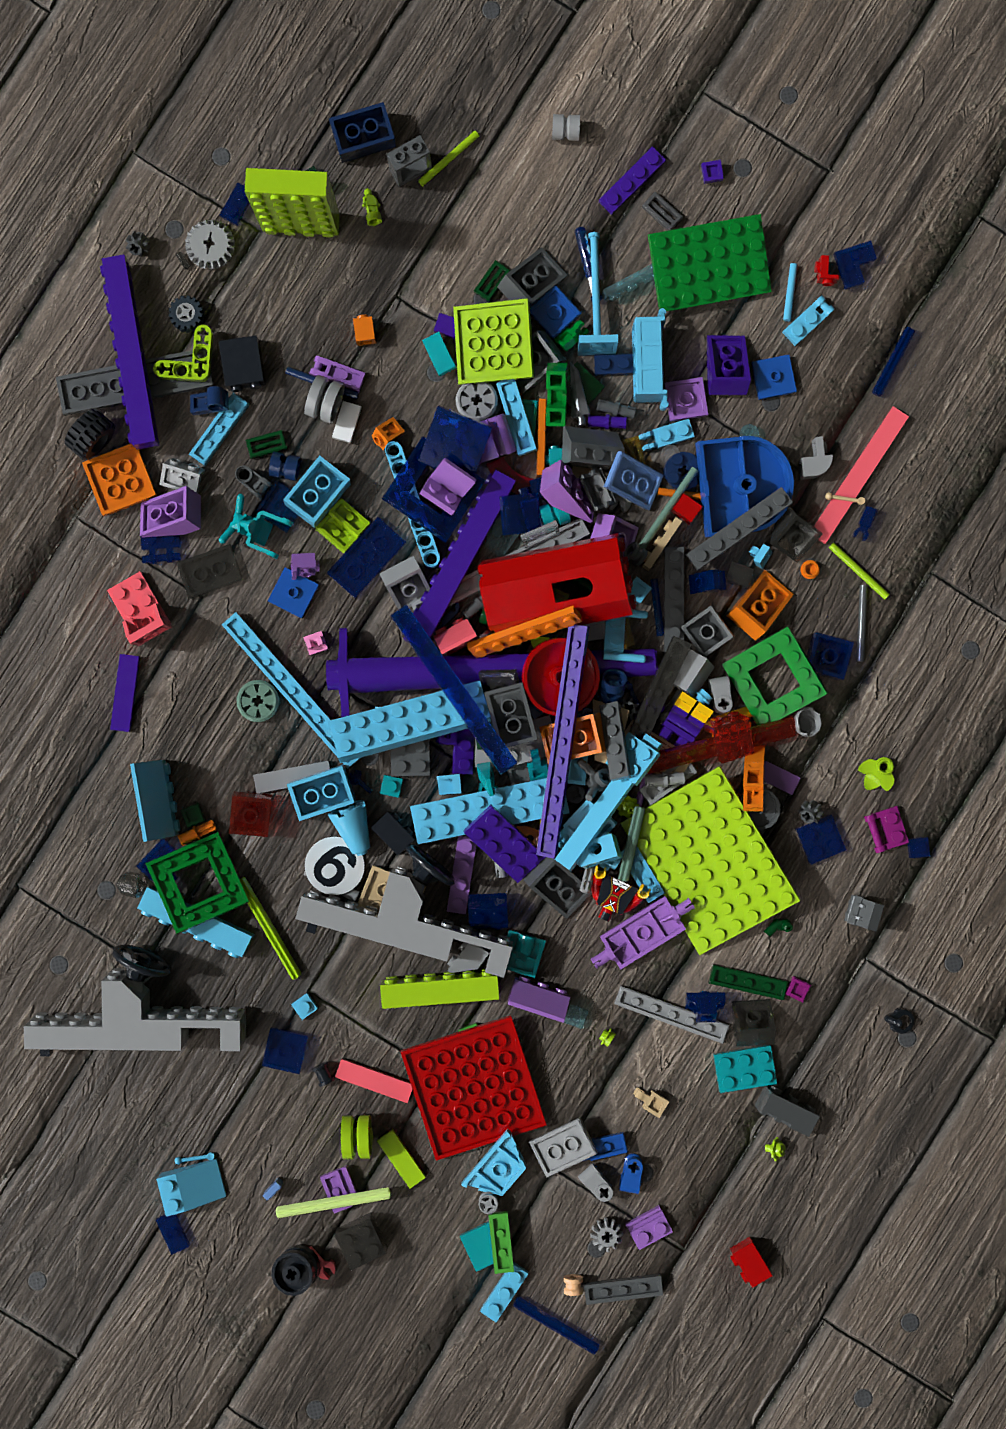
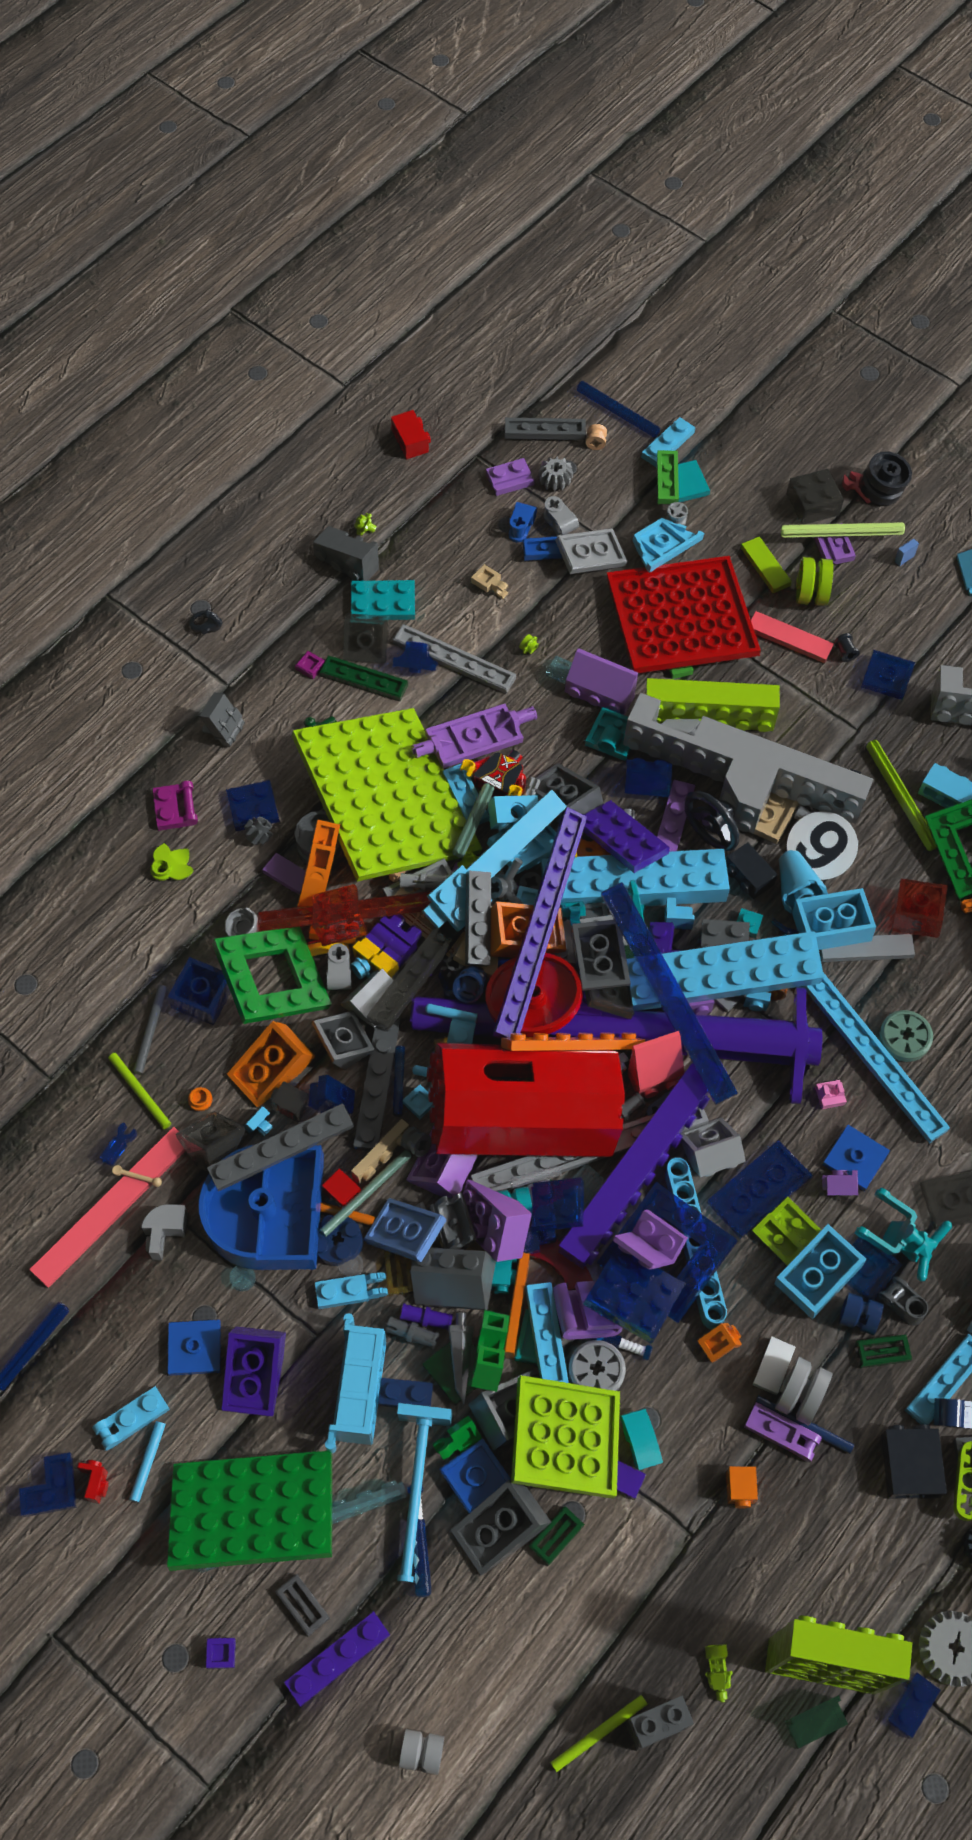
camera: 175 degrees left, 25 degrees down
(304, 1006) = (863, 715): medium azure plate -> none
(362, 132) = (724, 1785): dark blue brick -> none
(686, 399) = (317, 1332): medium lavender plate -> none
(918, 847) = (142, 783): clear blue plate -> none

